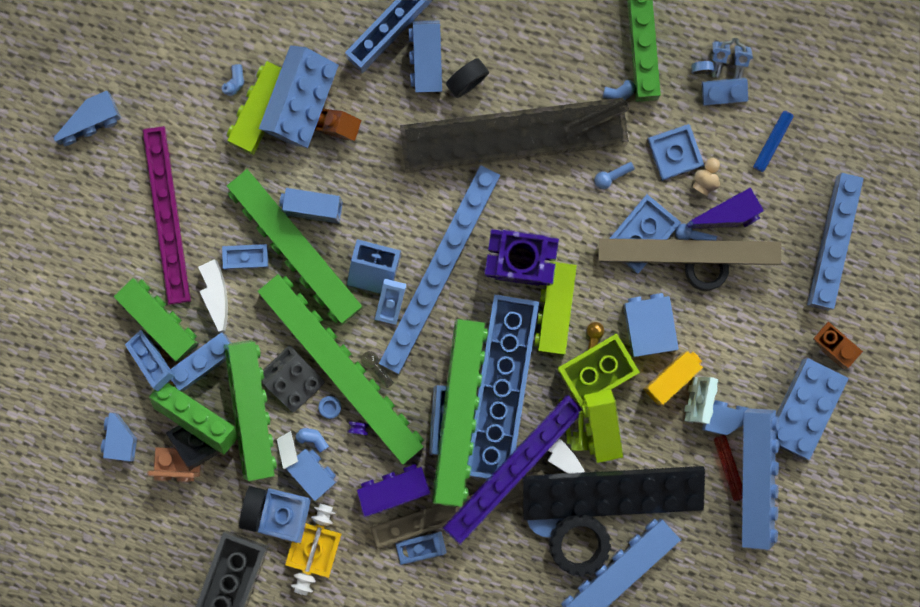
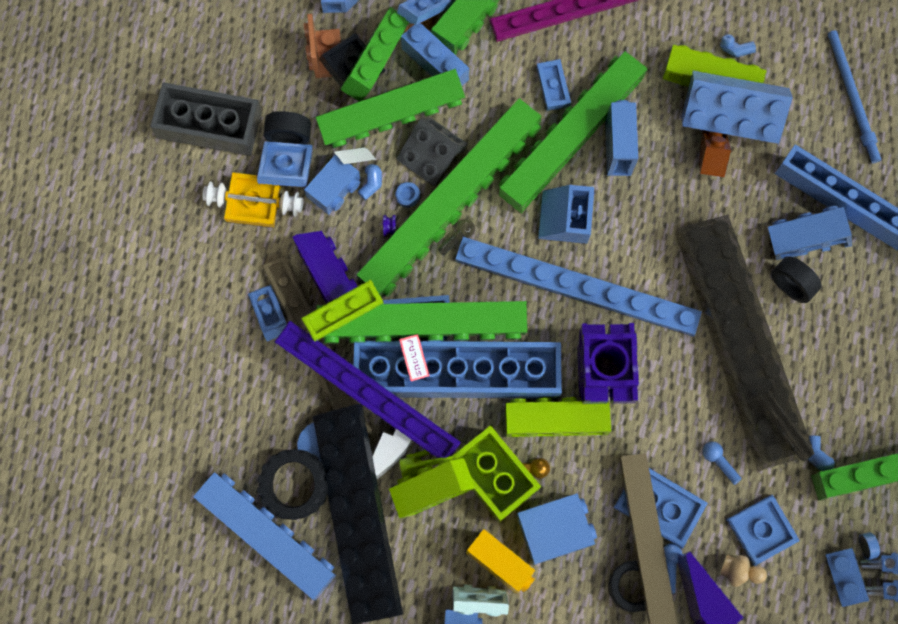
camera: 80 degrees right, 10 degrees down
(215, 294) = (508, 61): white slope -> none
(390, 301) = (532, 236): light blue plate -> none
(443, 480) = (342, 310): none -> lime tile
(491, 424) = (414, 357): none -> white sticker

